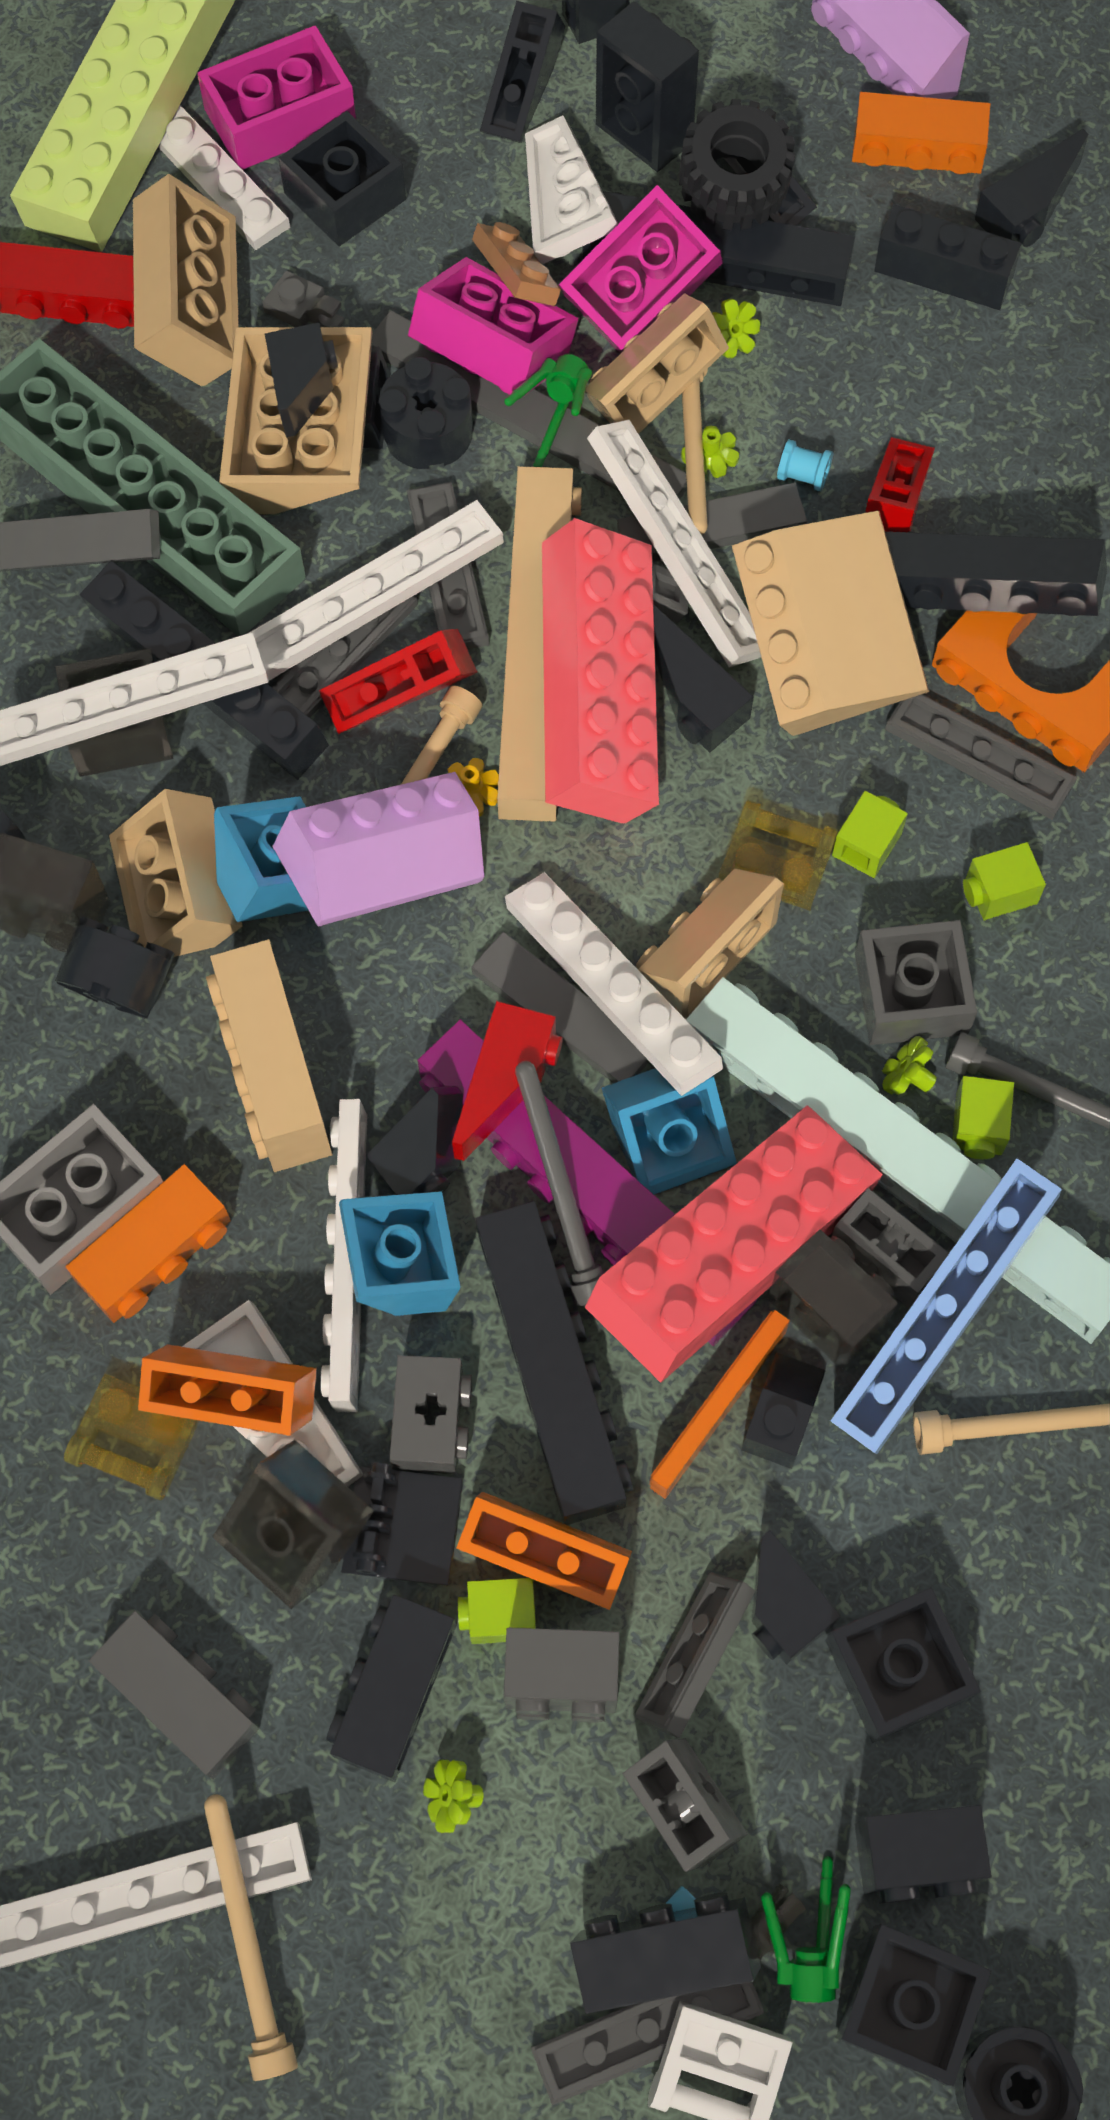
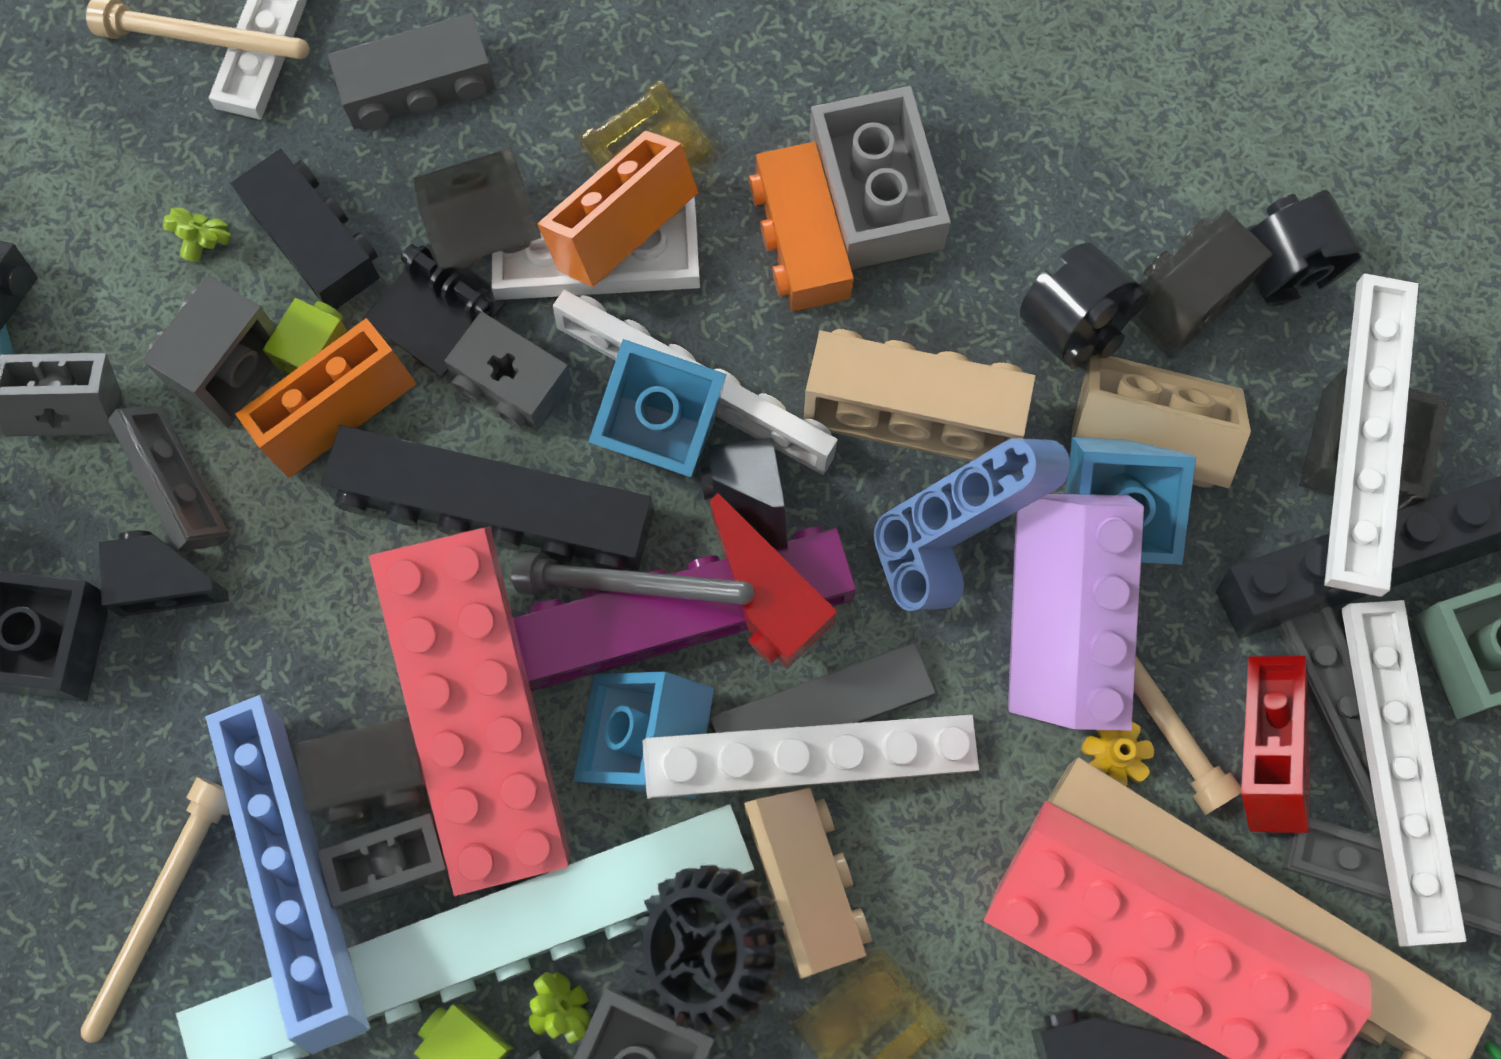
camera: 120 degrees right, 5 degrees up
(351, 951) = (920, 533): none -> medium blue beam
(718, 1403) = (356, 620): orange tile -> none
(783, 1410) = (314, 676): black slope -> none
(825, 930) = (727, 954): none -> black gear

